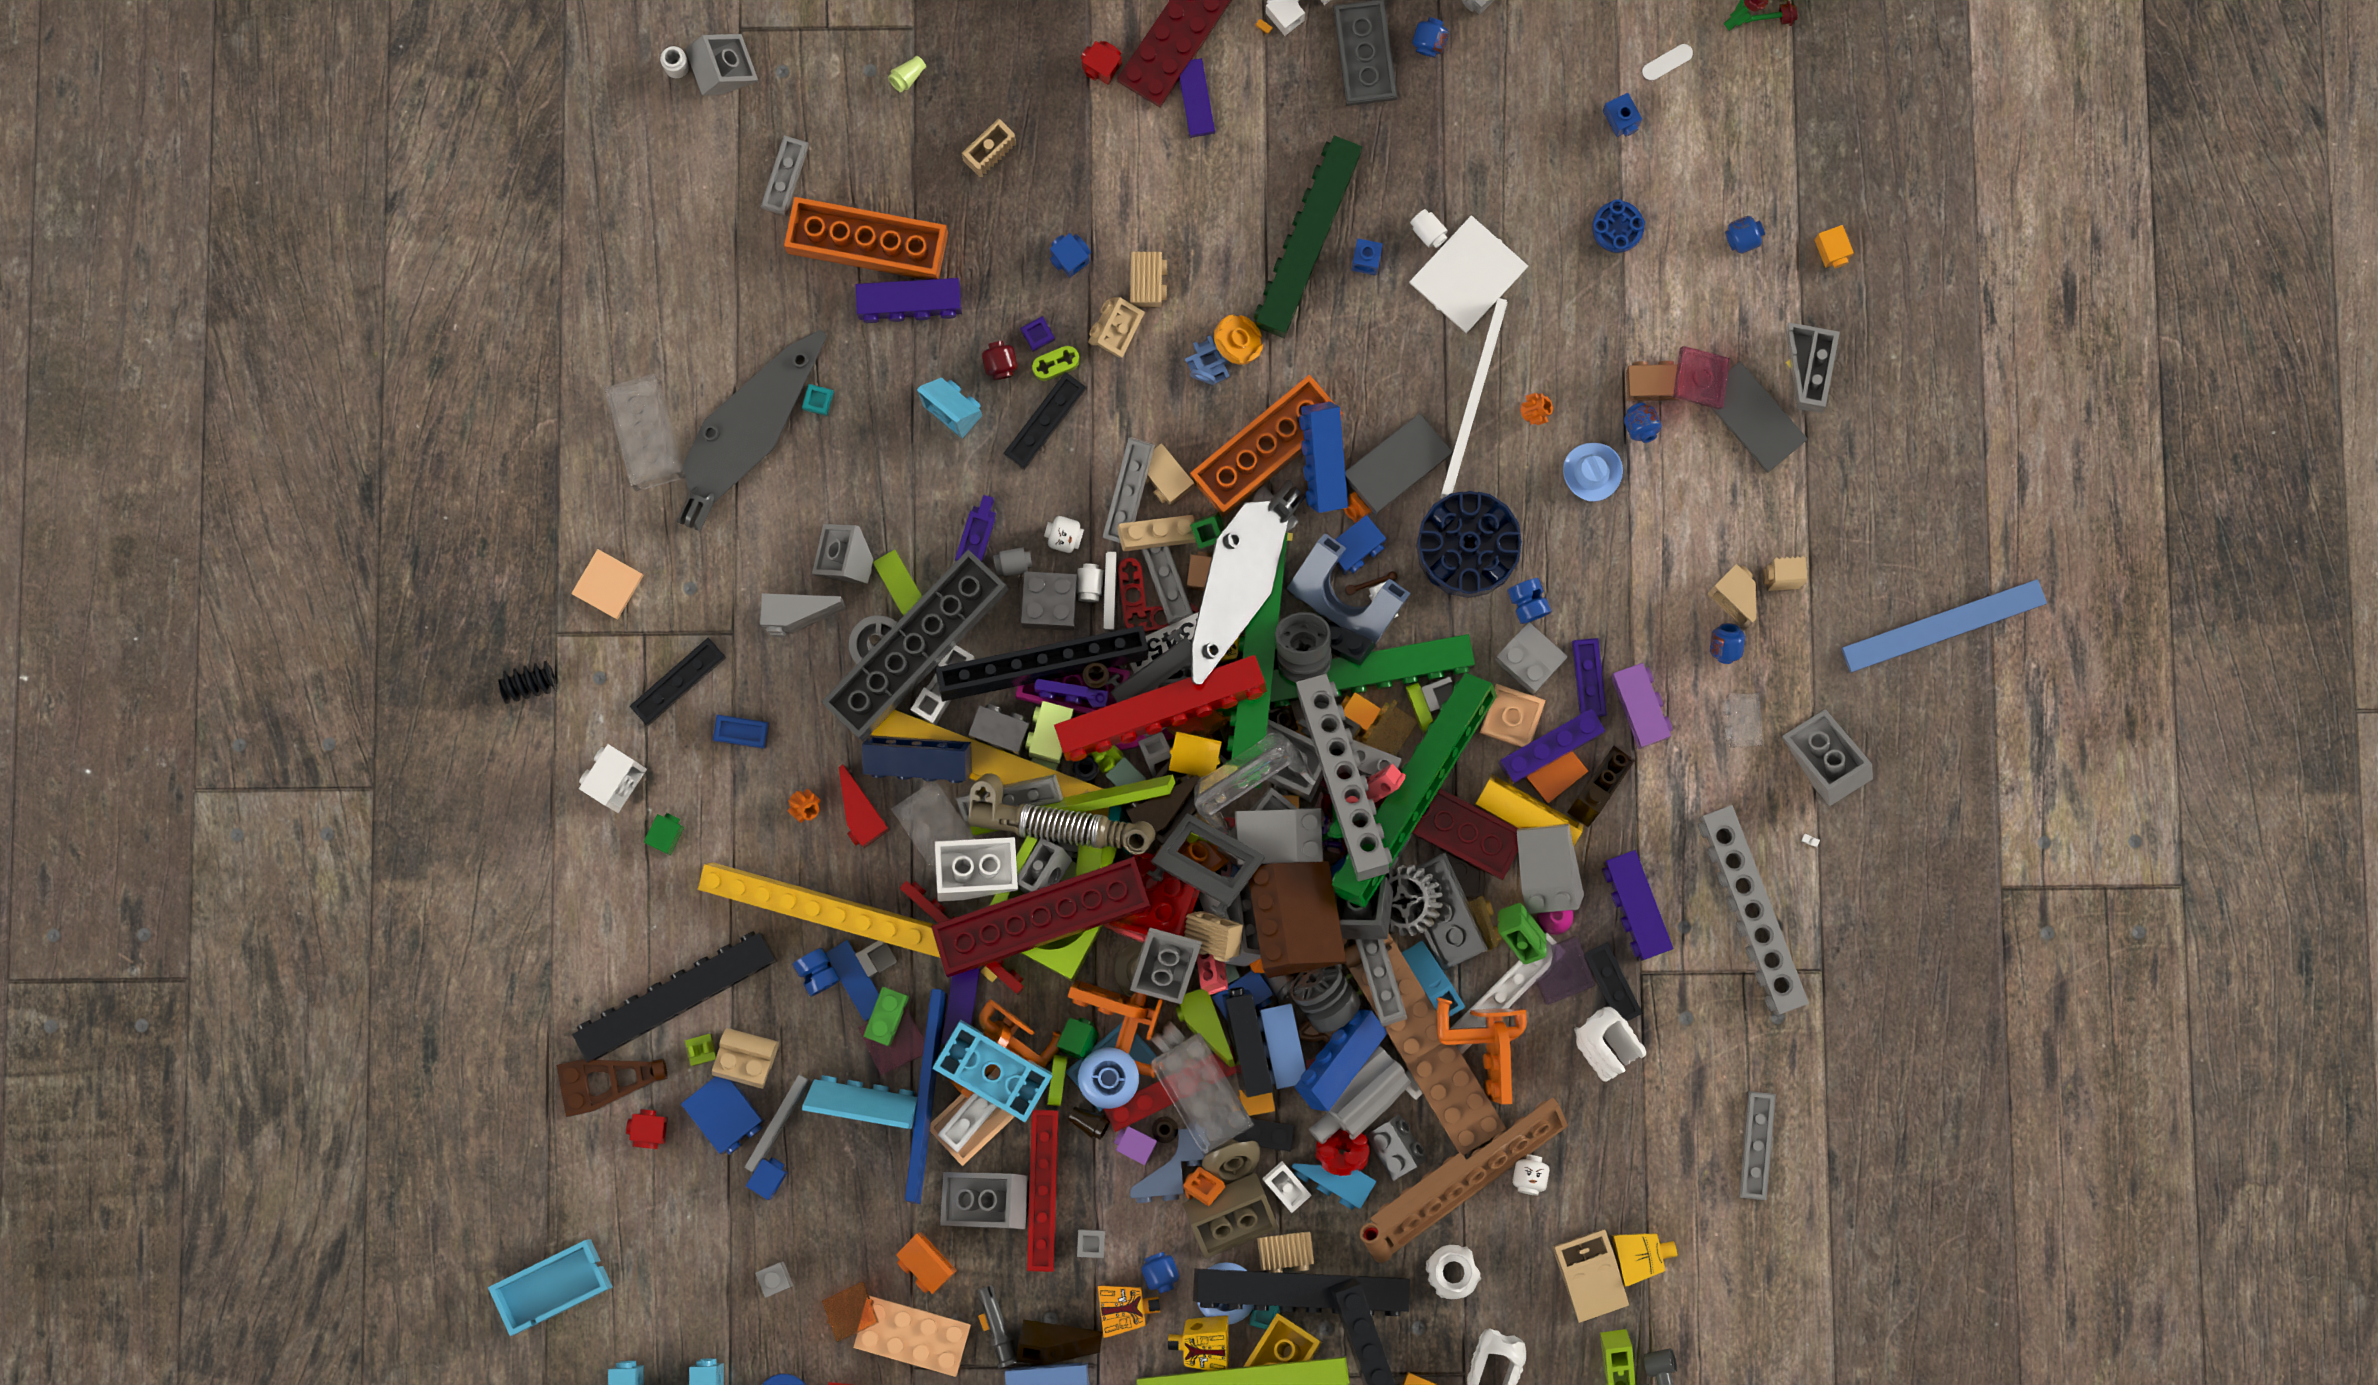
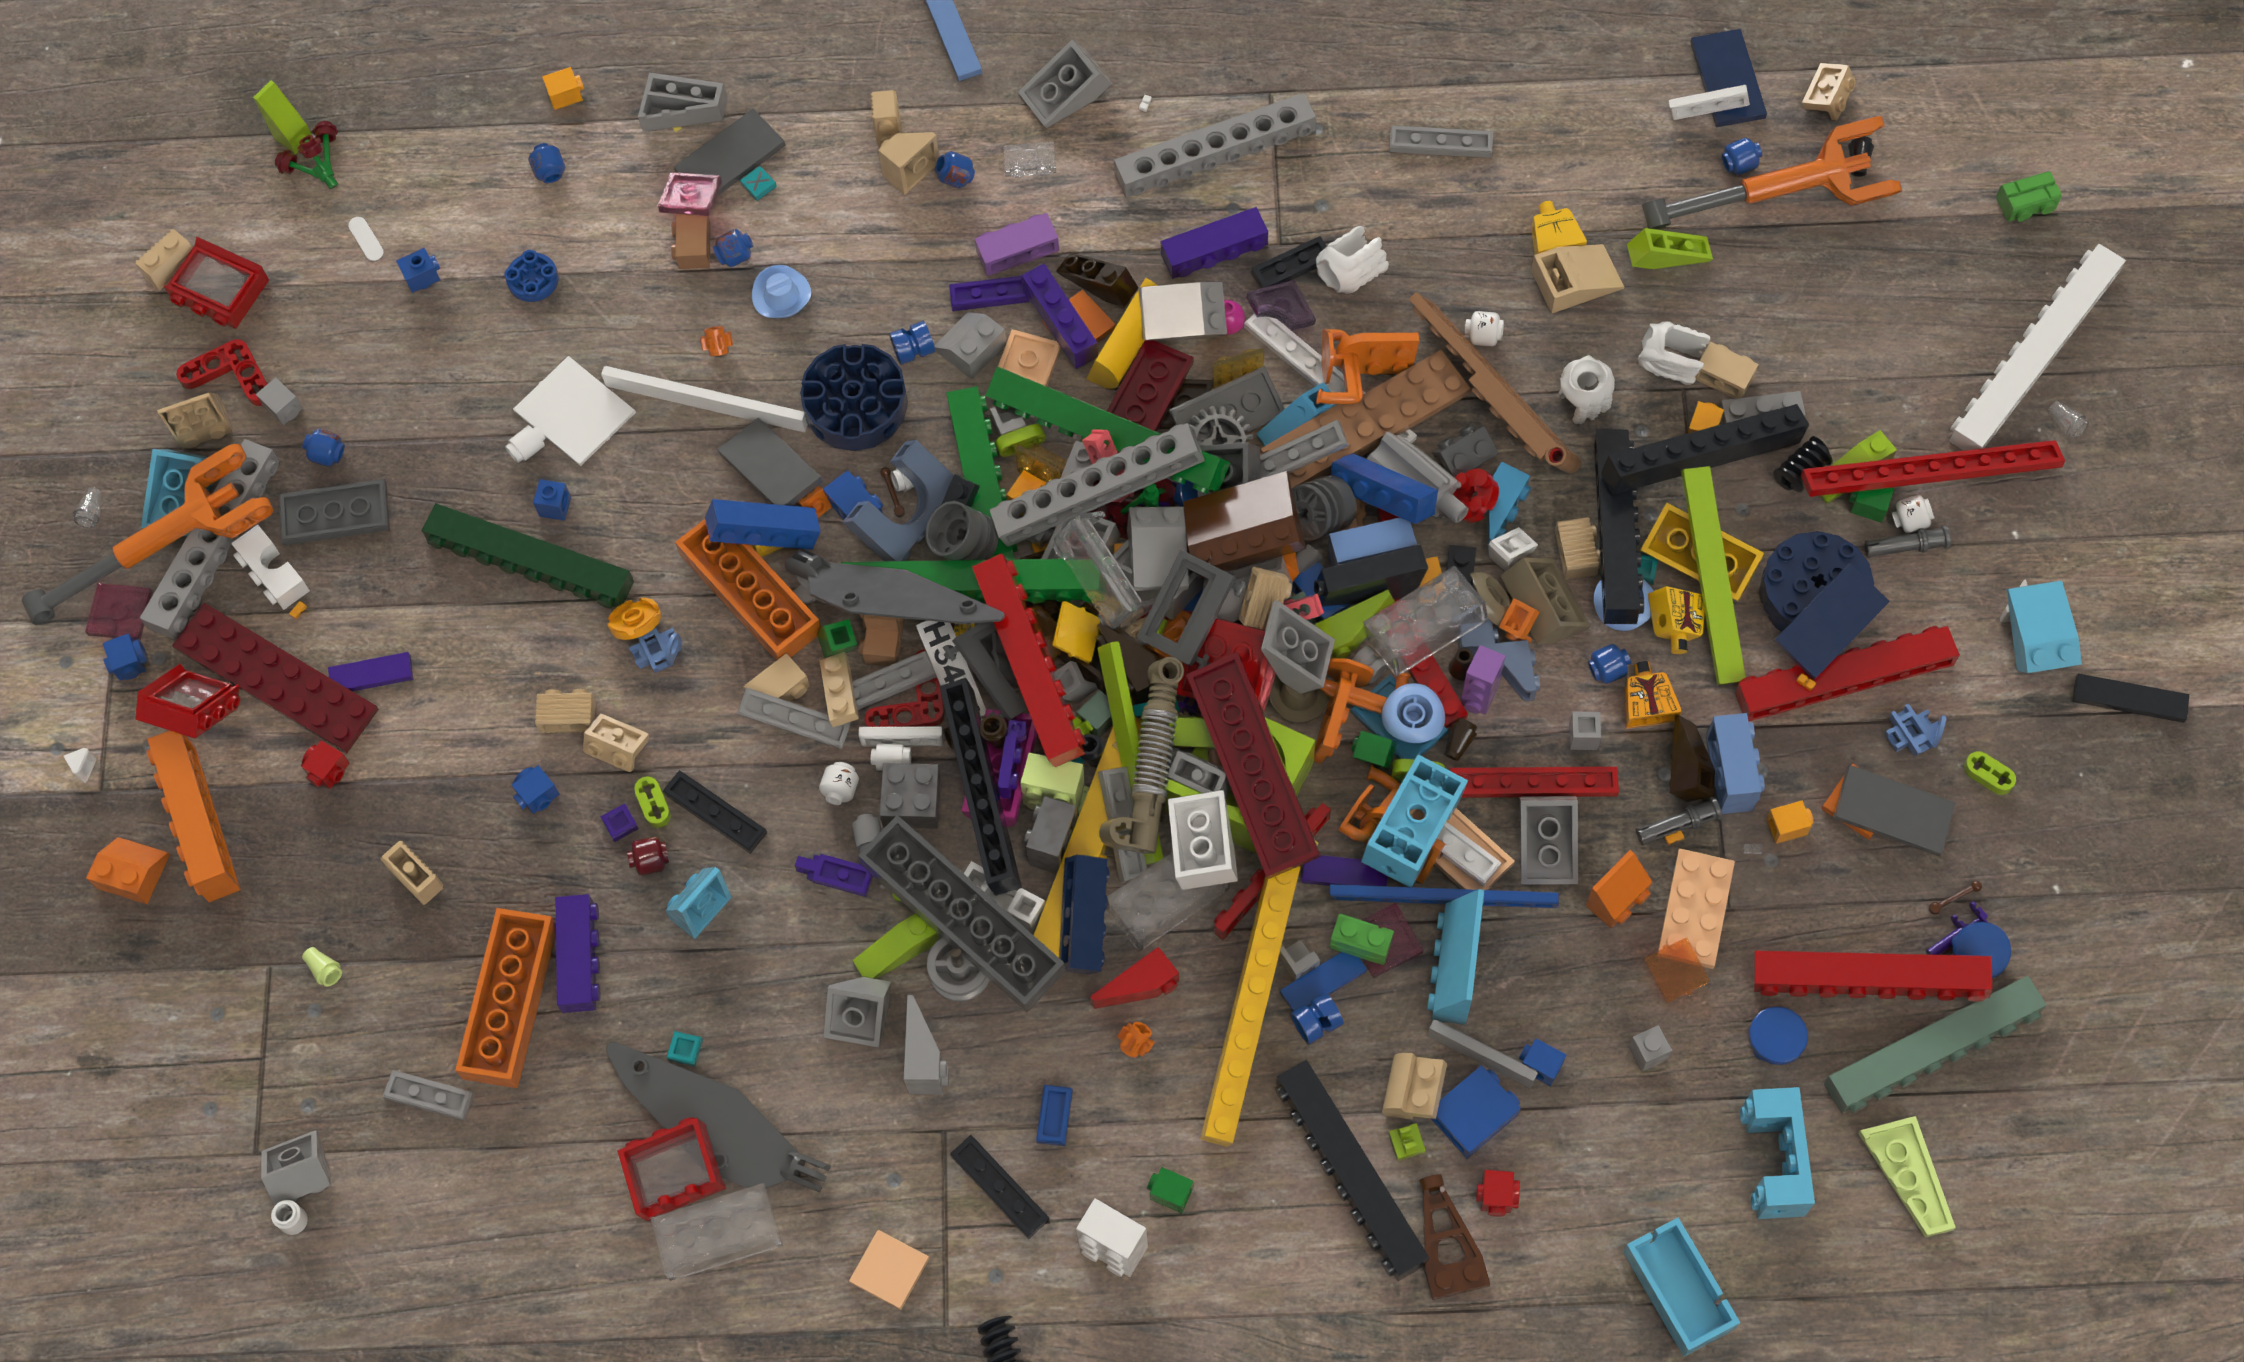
camera: 90 degrees left, 15 degrees down
(702, 389) = (670, 1169): none -> window
(1522, 933) = (1247, 335): bright green brick -> none
(1720, 446) = (758, 183): none -> teal tile

